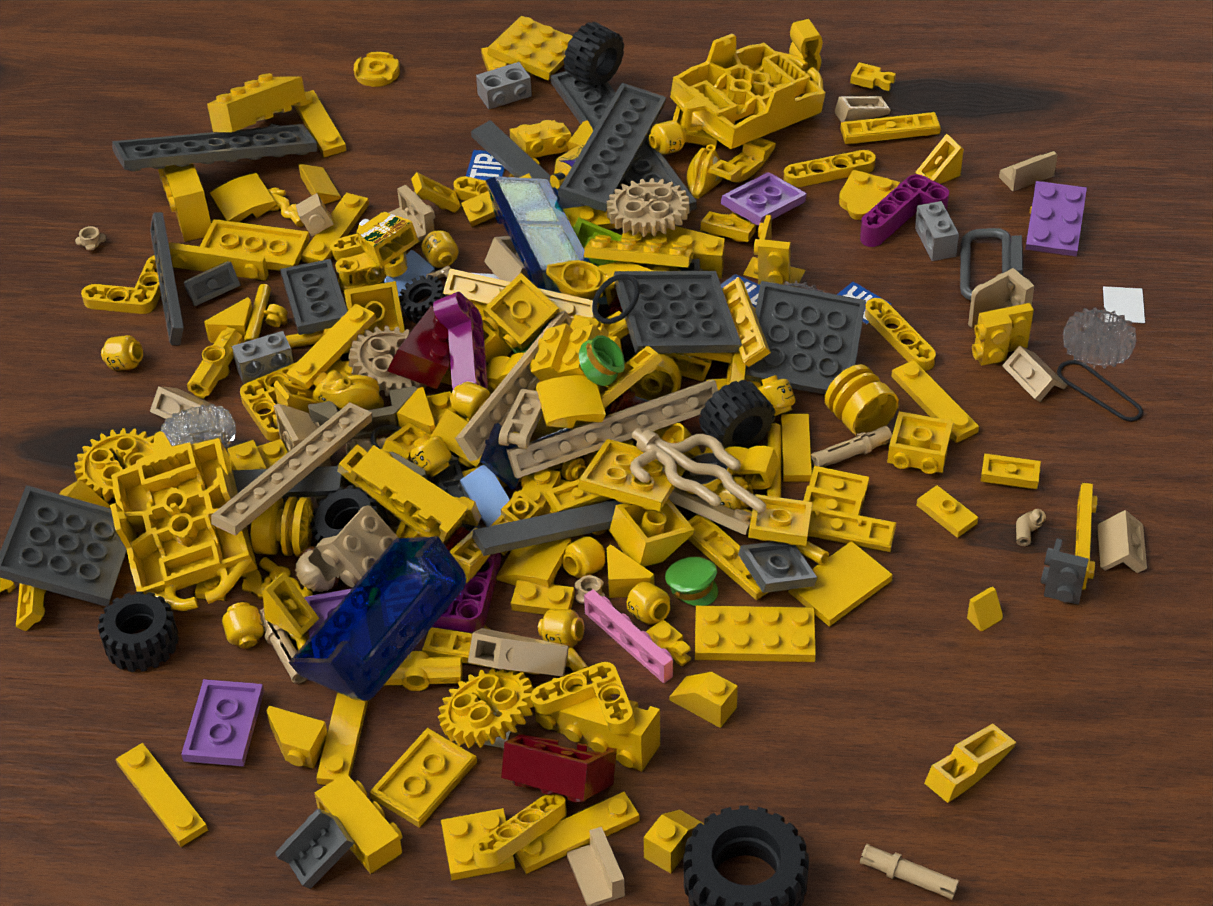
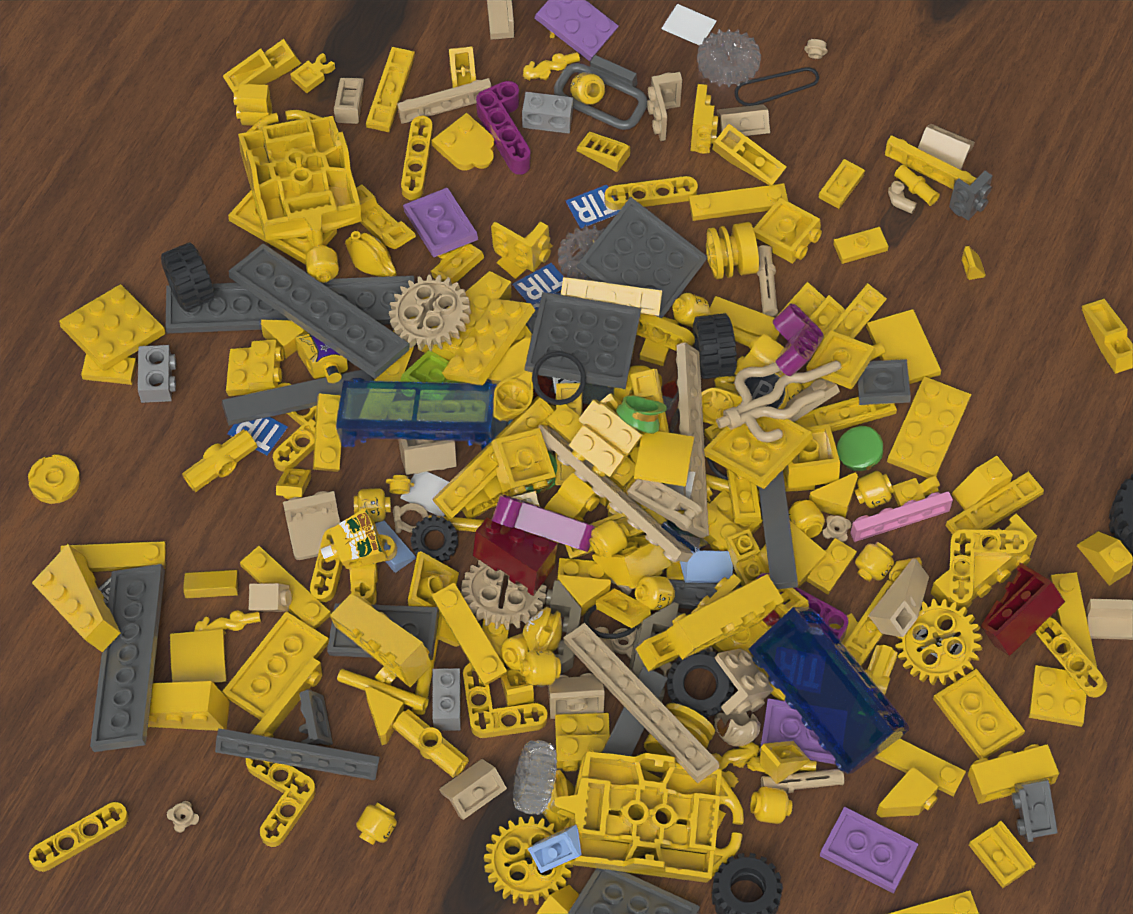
camera: 70 degrees left, 15 degrees up
(72, 199) = (76, 832): none -> yellow beam
(121, 457) = (556, 849): none -> light blue slope
(257, 841) = (1002, 854): none -> yellow plate
(292, 285) = (382, 639): none -> yellow wedge
(305, 391) = (540, 667): none -> yellow head
(439, 148) = (219, 460): none -> yellow piece
(472, 261) = (400, 484): none -> yellow plate
(686, 717) = (997, 505): none -> yellow plate
(793, 480) = (802, 339): none -> magenta beam
(856, 46) = (263, 66): none -> yellow slope
(895, 157) = (441, 101): none -> tan plate
(925, 288) = (613, 162): none -> yellow slope
(983, 247) = (587, 88): none -> yellow head
(987, 218) = (544, 68): none -> yellow animal
(987, 379) = (747, 155): none -> yellow slope
(1053, 530) = (917, 185): none -> yellow pin
(1165, 402) = (816, 48): none -> tan plate

